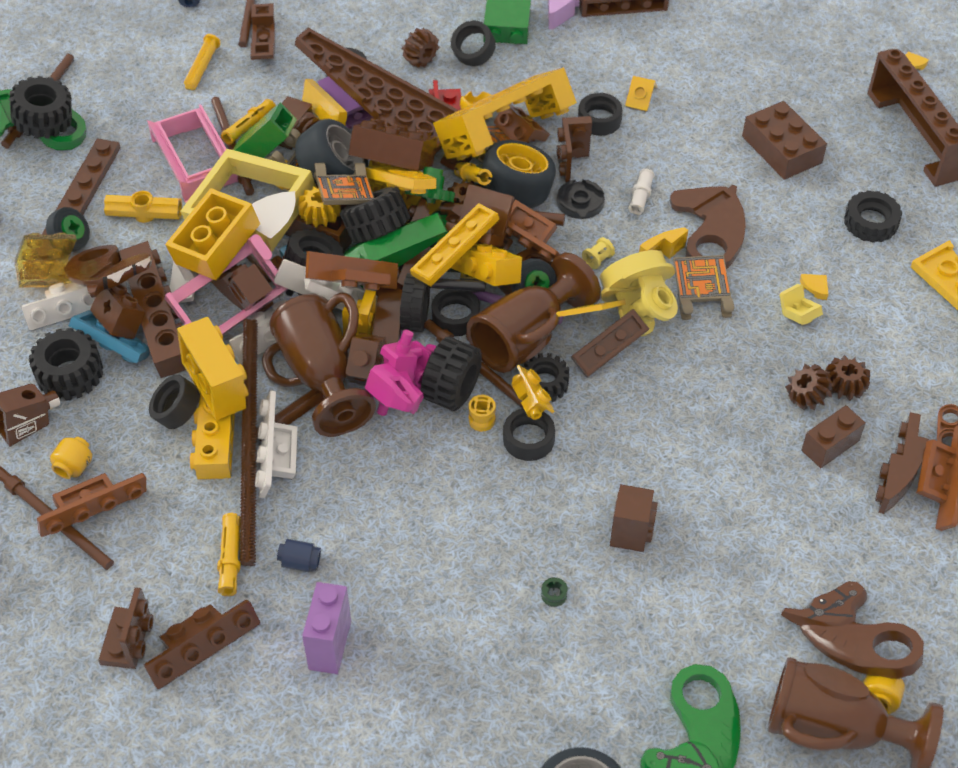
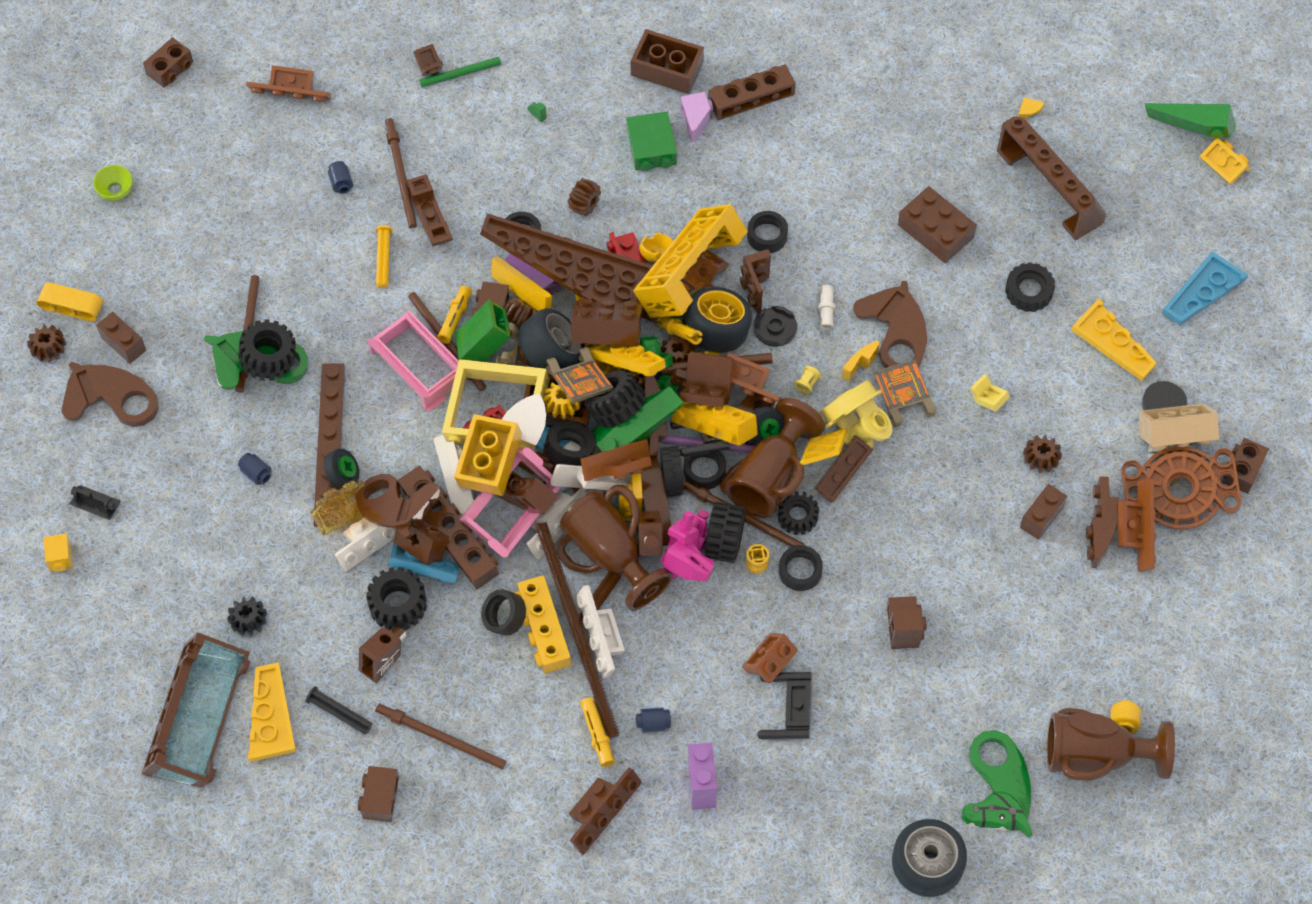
camera: 15 degrees left, 10 degrees up
(71, 457) = (437, 682): yellow head -> none
(89, 499) = (466, 714): dark orange bracket -> none
(126, 633) = (543, 819): reddish brown bracket -> none
(143, 206) = (409, 425): yellow piece -> none
(213, 367) = (533, 580): yellow brick -> none
(454, 244) = (695, 415): yellow tile -> none
(462, 519) = (770, 657): none -> dark orange bracket
(467, 29) = (614, 178): black tyre -> none
(474, 581) = (797, 707): none -> black plate
(528, 388) = (802, 539): yellow hinge -> none
(553, 583) = (857, 692): dark green bush -> none
(640, 93) = (797, 199): yellow bracket -> none
(809, 387) = (1009, 467): reddish brown gear -> none
(815, 284) = (997, 368): yellow tile -> none
(833, 630) = (1077, 677): reddish brown animal -> none

